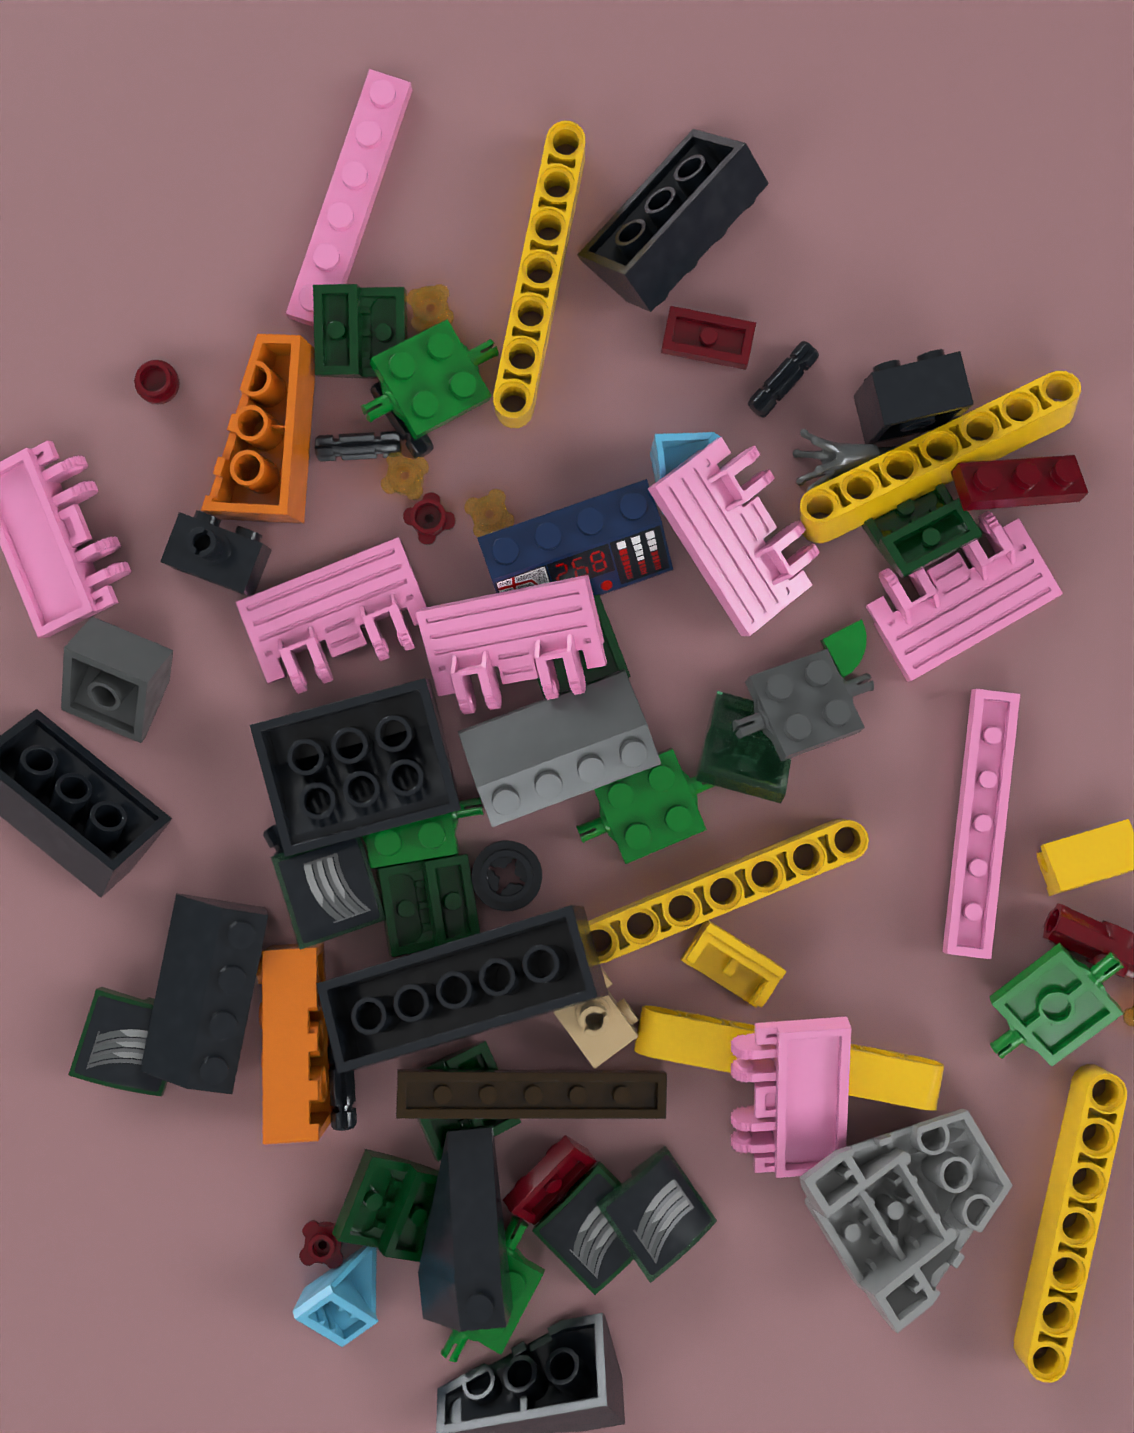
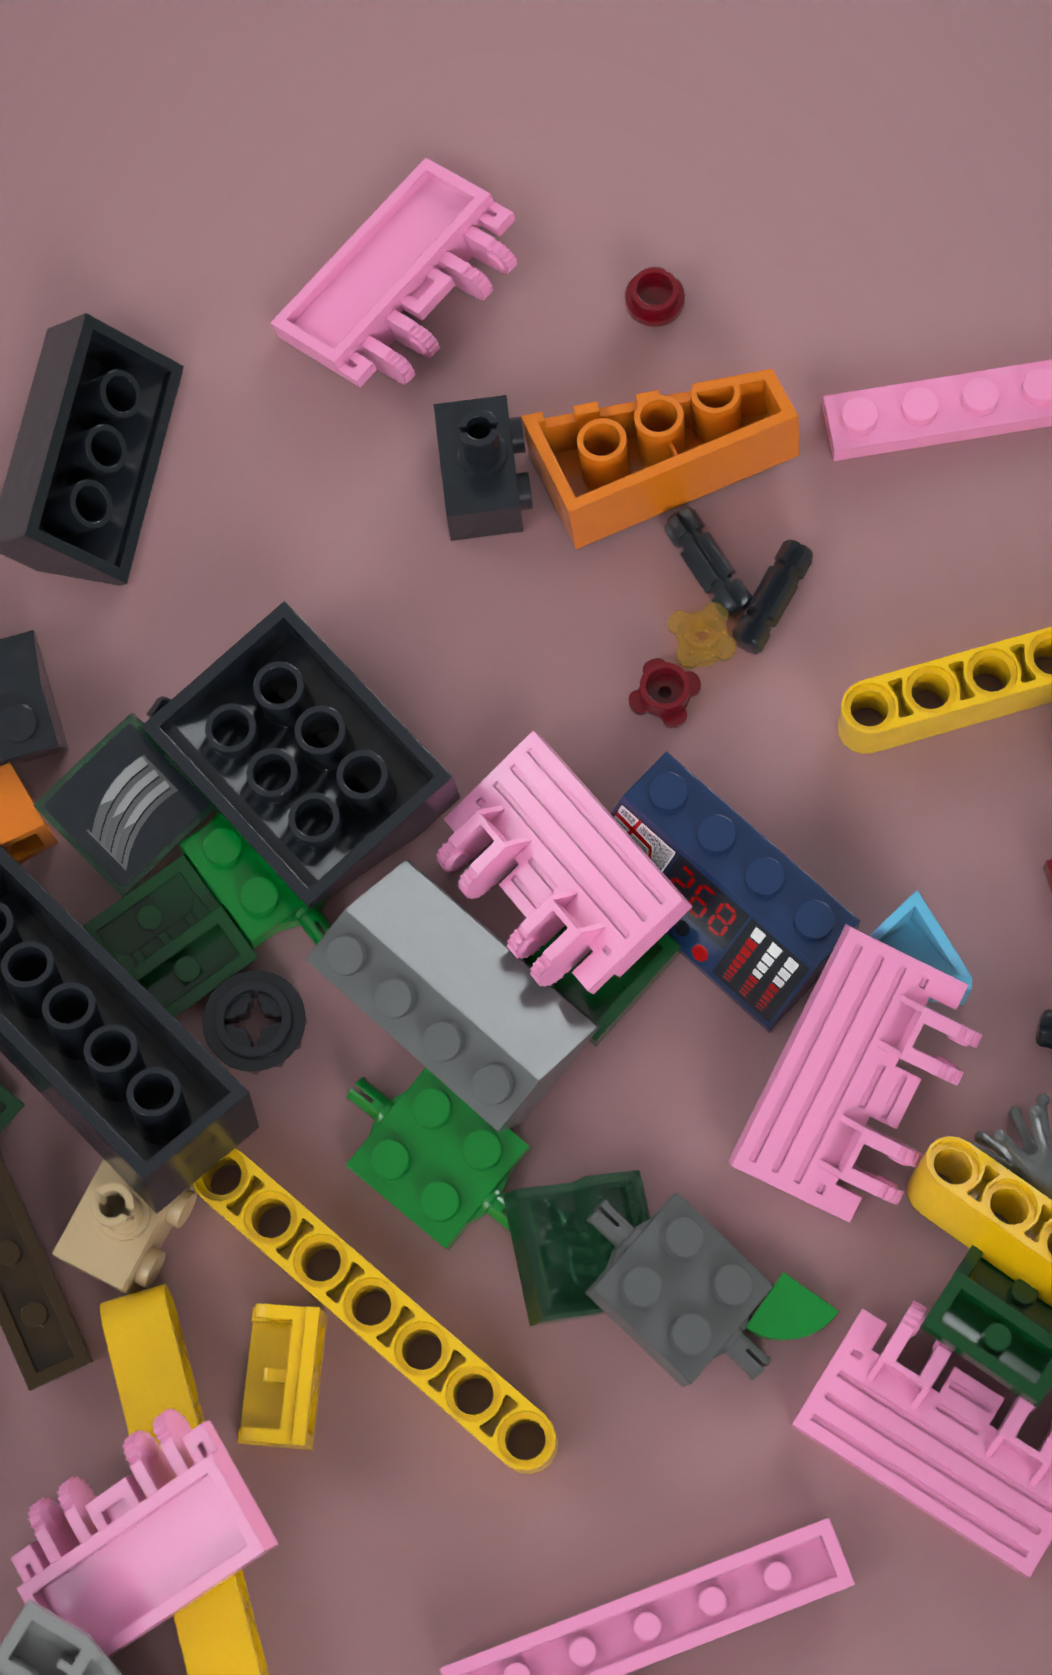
camera: 70 degrees right, 15 degrees down
(114, 678) = (265, 430): dark grey slope -> none
(331, 609) = (488, 639): bright pink hinge -> none
(355, 326) = (851, 492): dark green slope -> none
(427, 295) = (937, 542): clear yellow plate -> none
(430, 379) = (838, 601): green plate -> none
(493, 501) = (711, 743): clear yellow plate -> none

